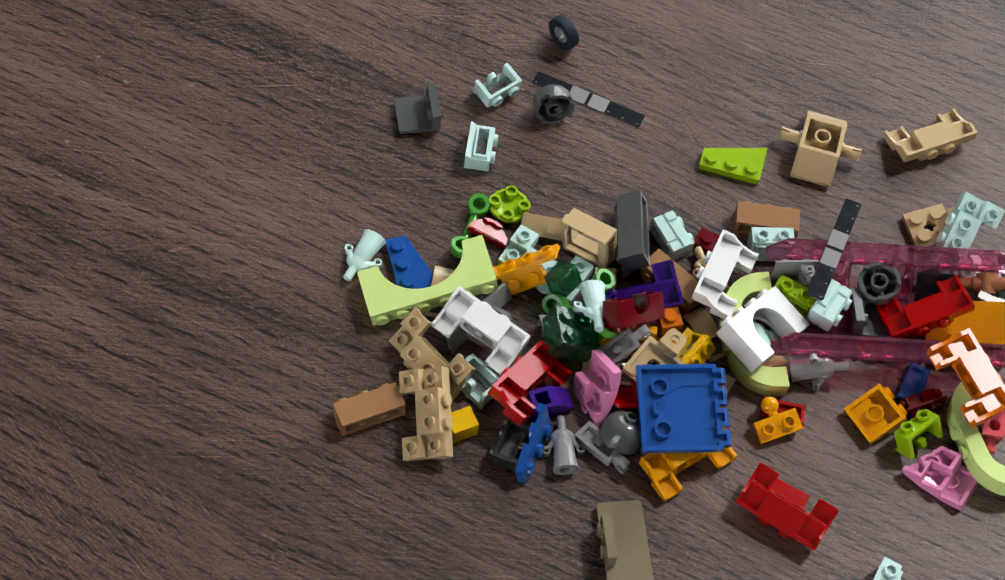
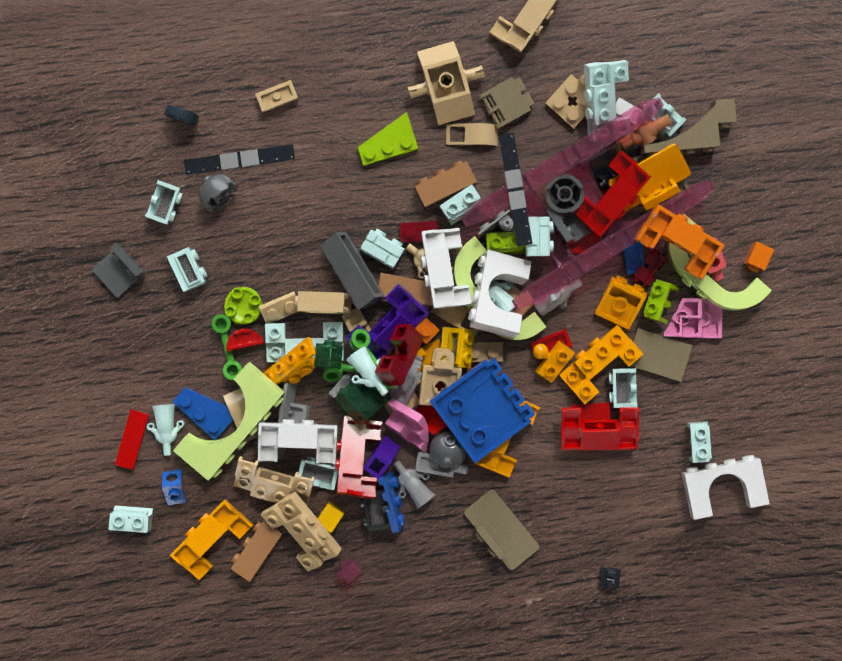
camera: 25 degrees left, 30 degrees up
(272, 307) = (131, 519): none -> light aqua window
(323, 248) = (132, 439): none -> red tile
(328, 311) = (173, 490): none -> blue bracket
(330, 364) = (199, 540): none -> light orange bracket
(445, 484) = (349, 570): none -> clear pink plate
(657, 70) = (276, 96): none -> tan plate
(819, 200) = (475, 134): none -> tan piece
(821, 447) = (597, 357): none -> light orange bracket
(835, 486) = (623, 387): none -> window
(870, 191) = (507, 101): none -> dark tan plate
(887, 486) = (661, 354): none -> dark tan tile

